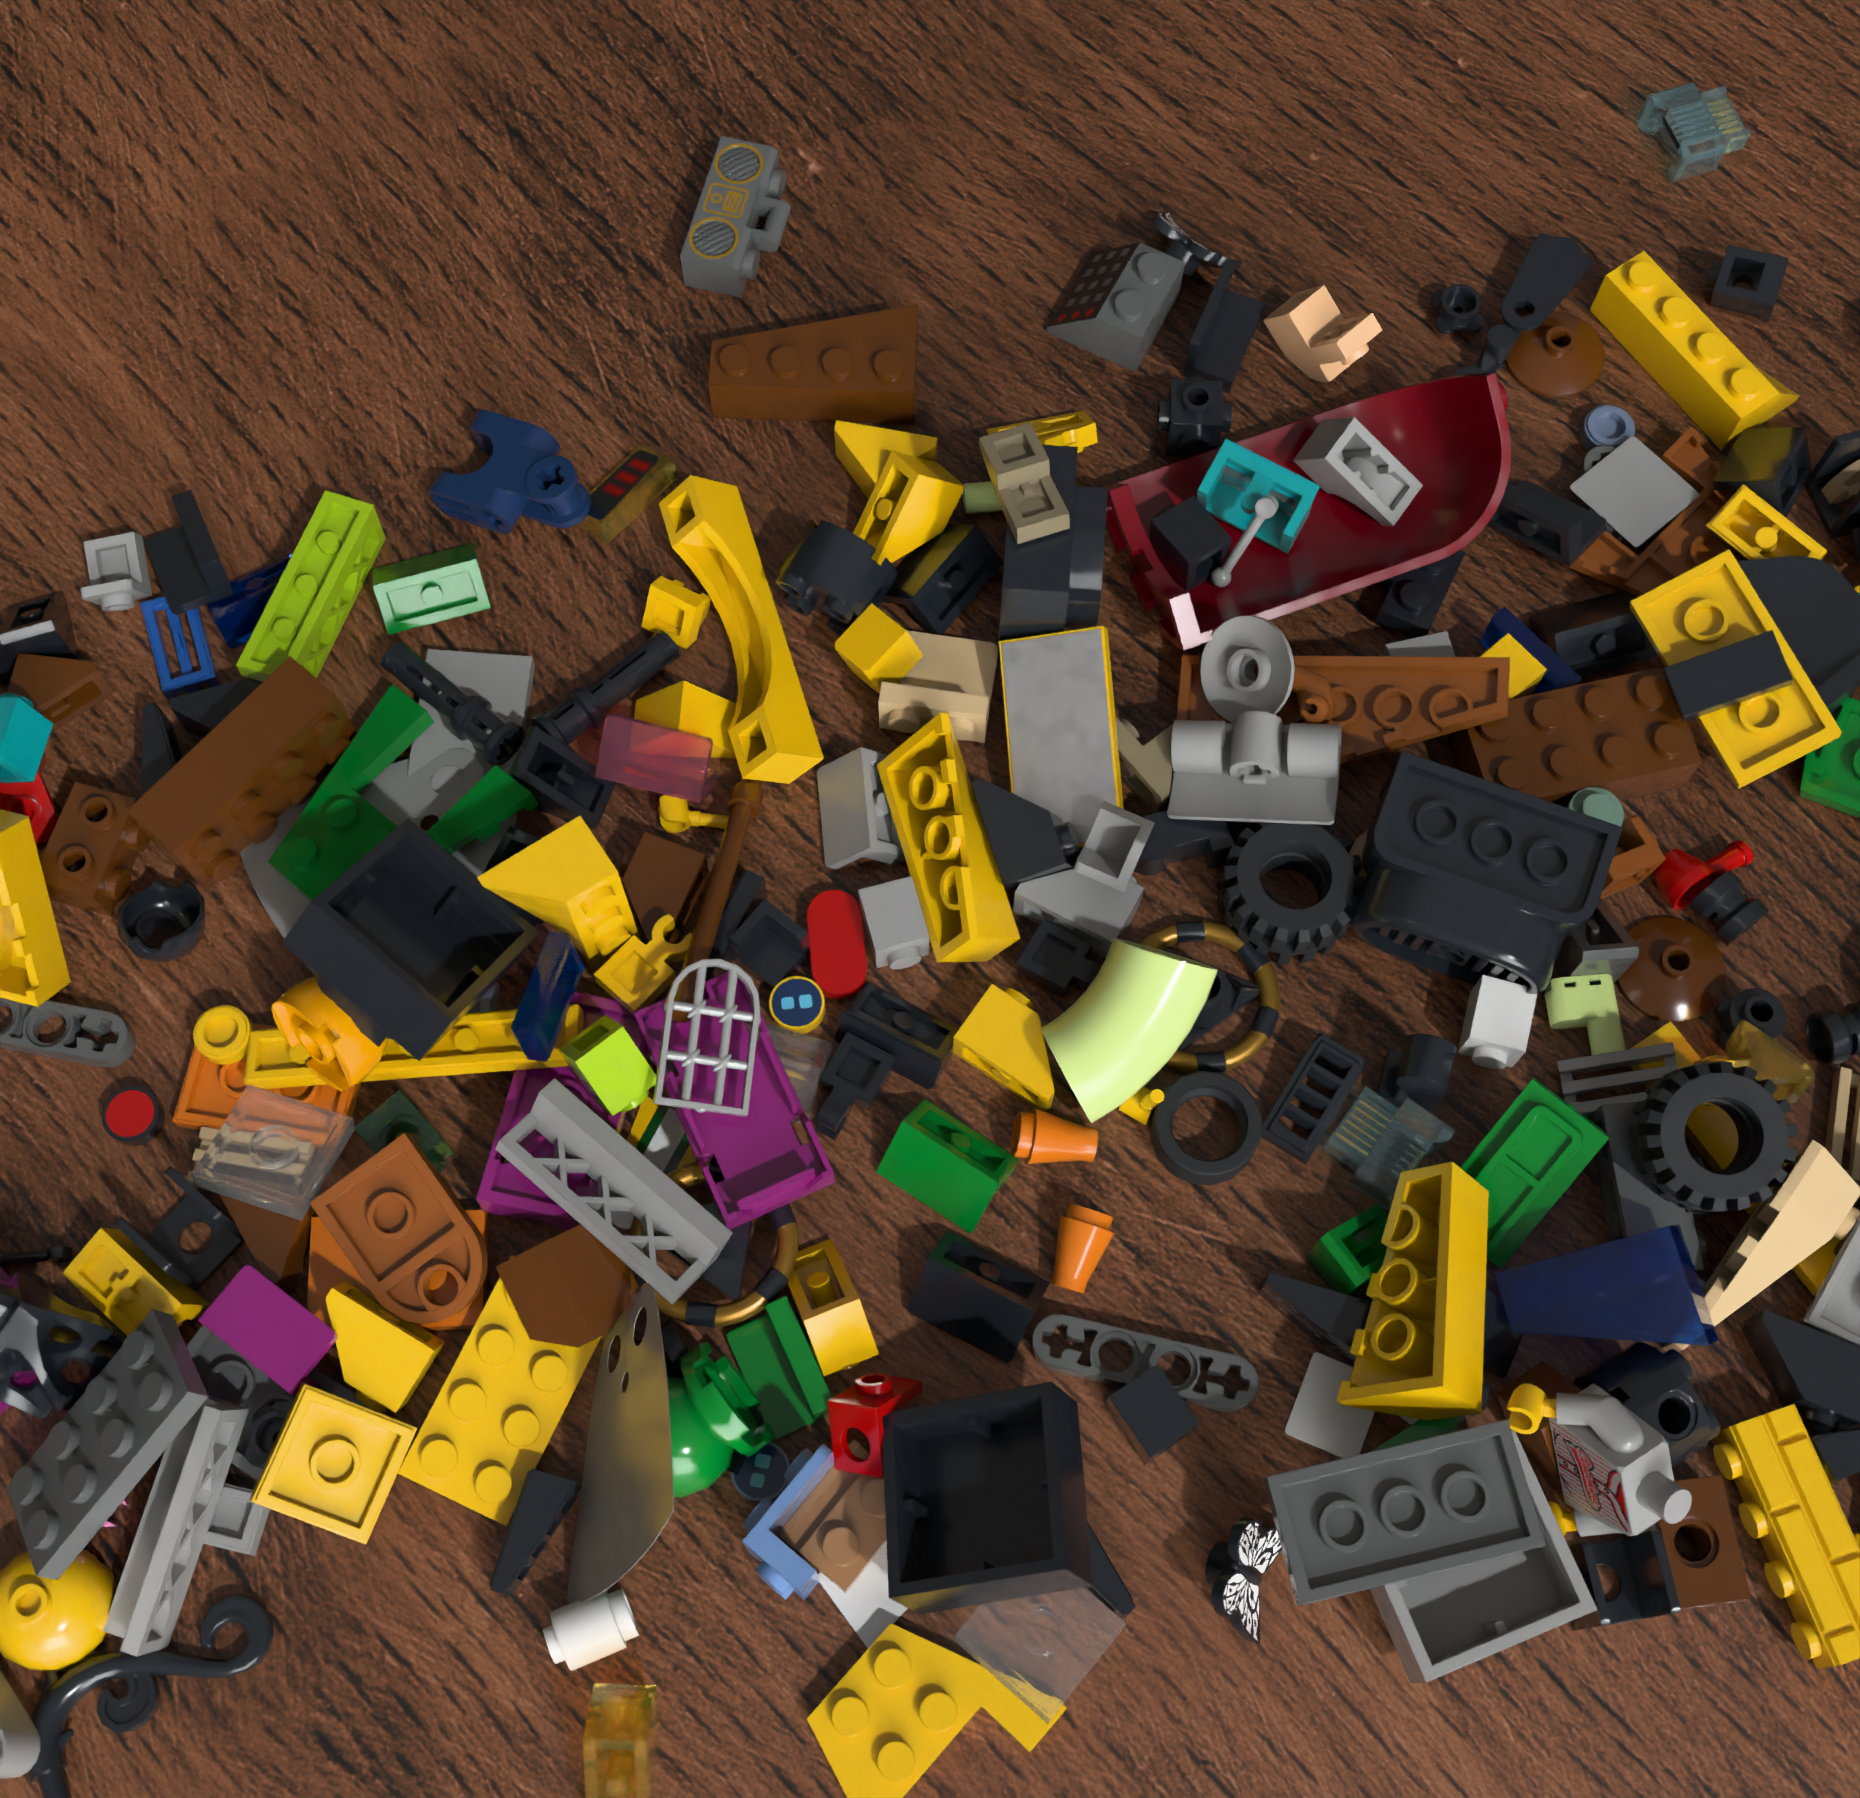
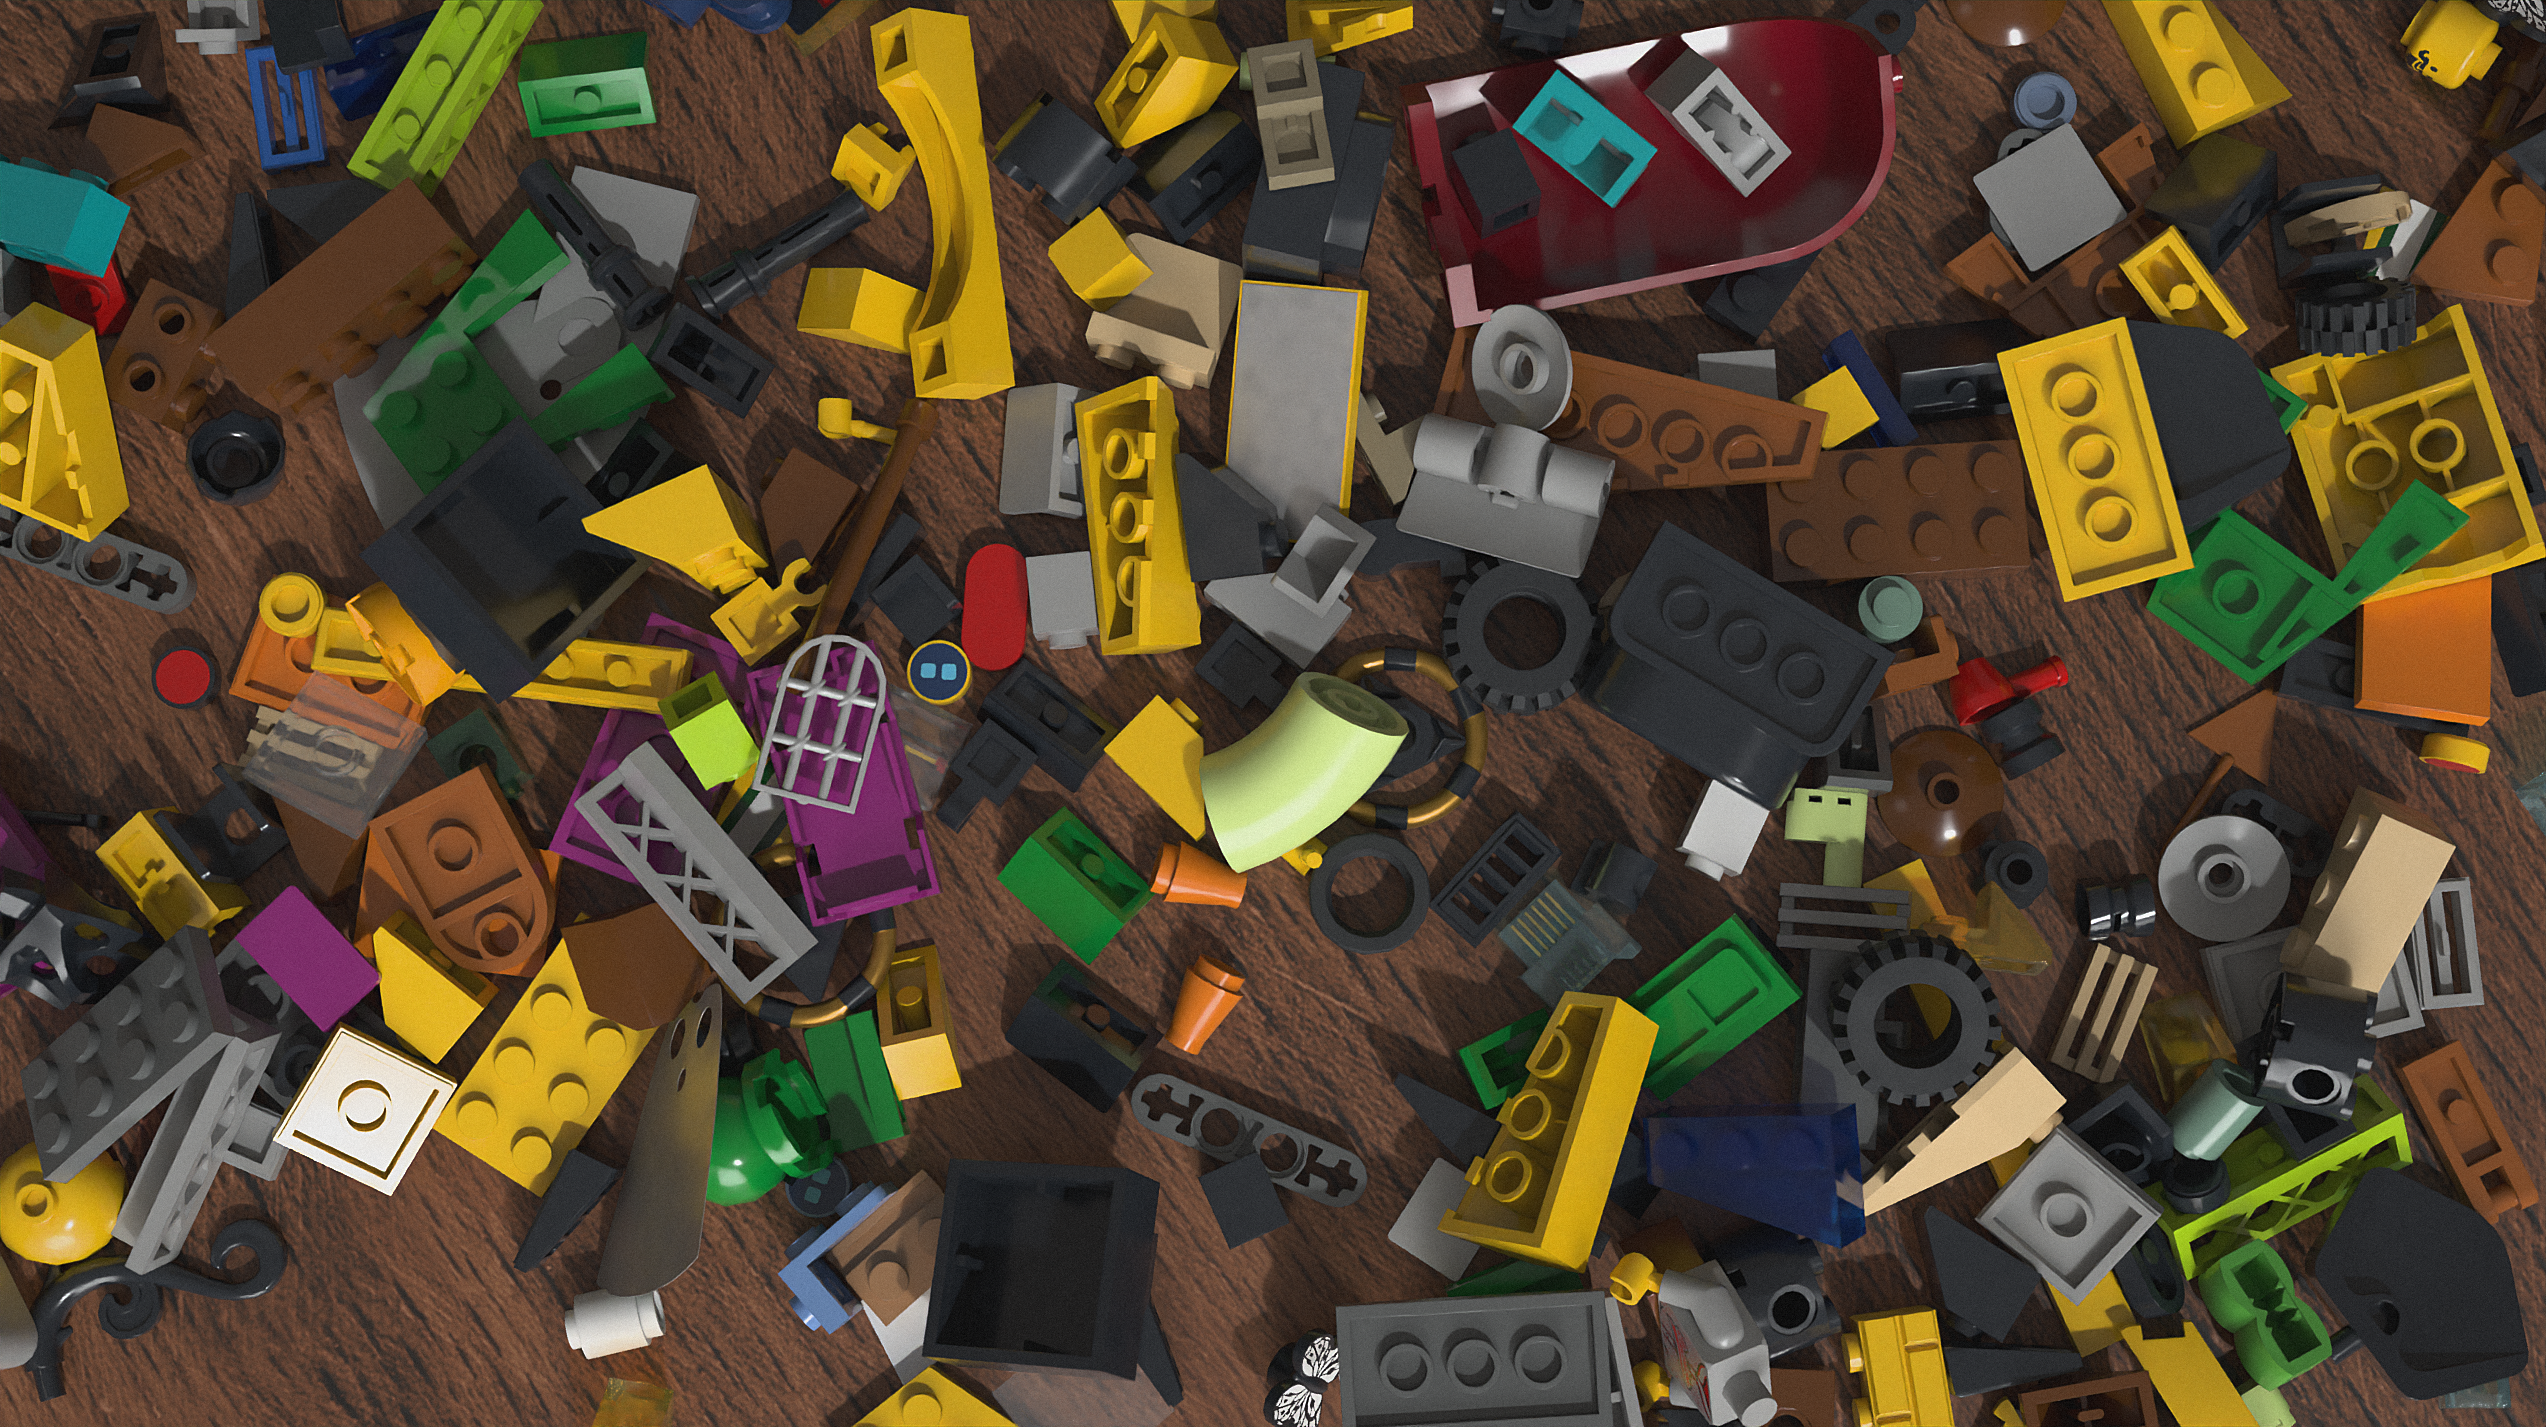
camera: 10 degrees right, 15 degrees up
(547, 997) = (652, 642): clear blue tile -> none
(655, 758) = (819, 359): clear pink panel -> none
(864, 1409) = (933, 1146): red bracket -> none
(1265, 509) = (1584, 170): light grey hinge -> none
(1313, 696) = (1593, 412): dark orange arm -> none
(1547, 522) = (1935, 218): black panel -> none
(1727, 676) = (2080, 474): black tile -> none

